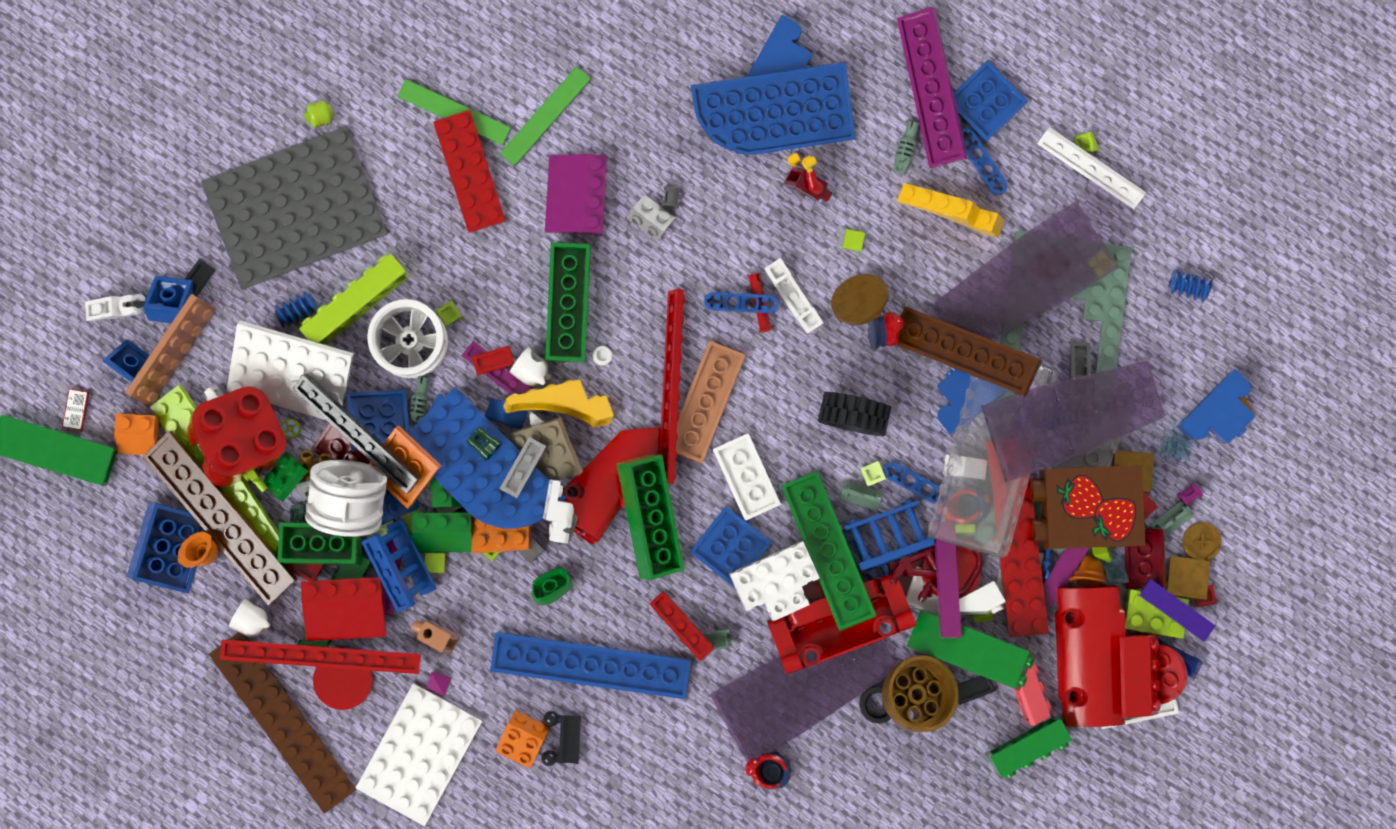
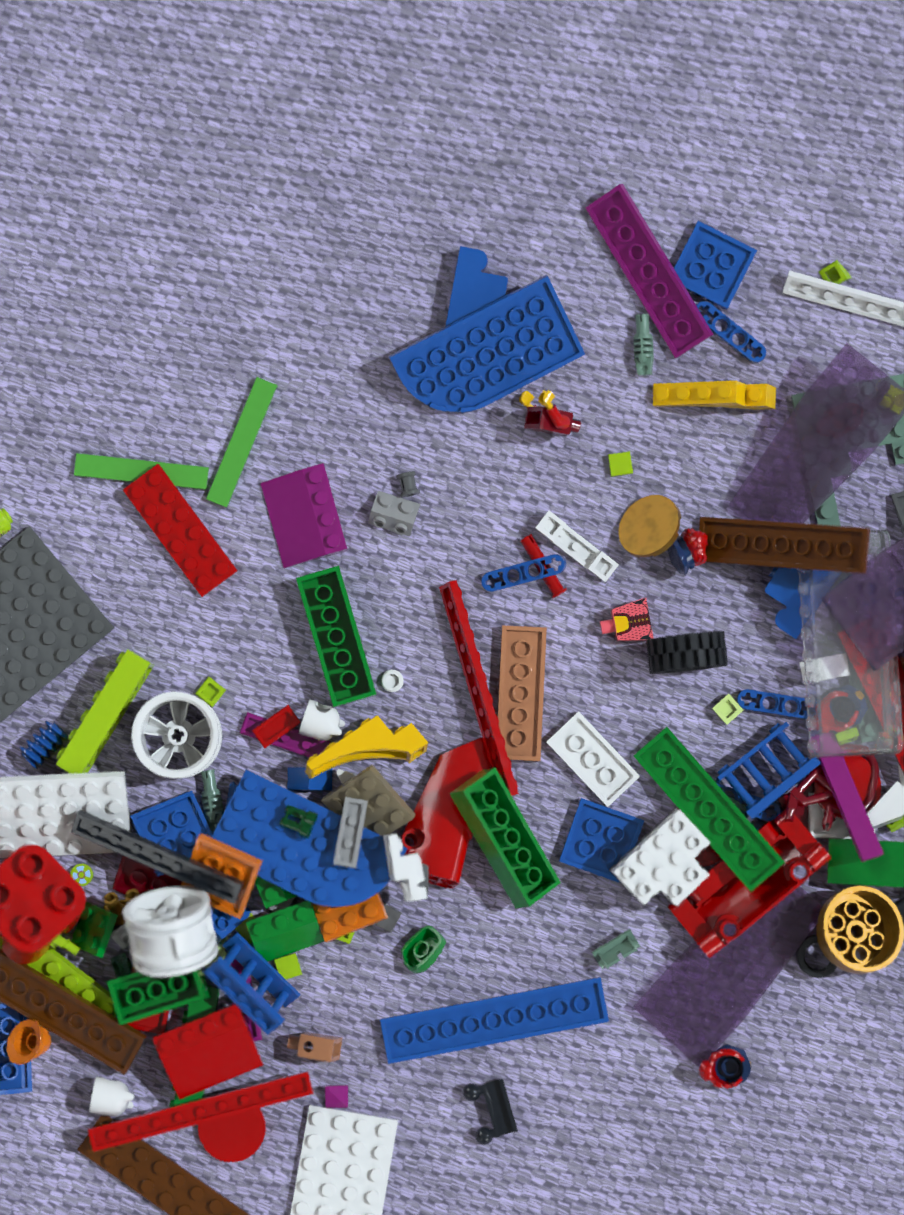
camera: 20 degrees left, 0 degrees up
(522, 739) = (448, 1125): orange bracket -> none
(682, 626) = (578, 944): red tile -> none
(816, 373) = (629, 622): none -> torso
(861, 495) = (722, 737): sand green hinge -> none

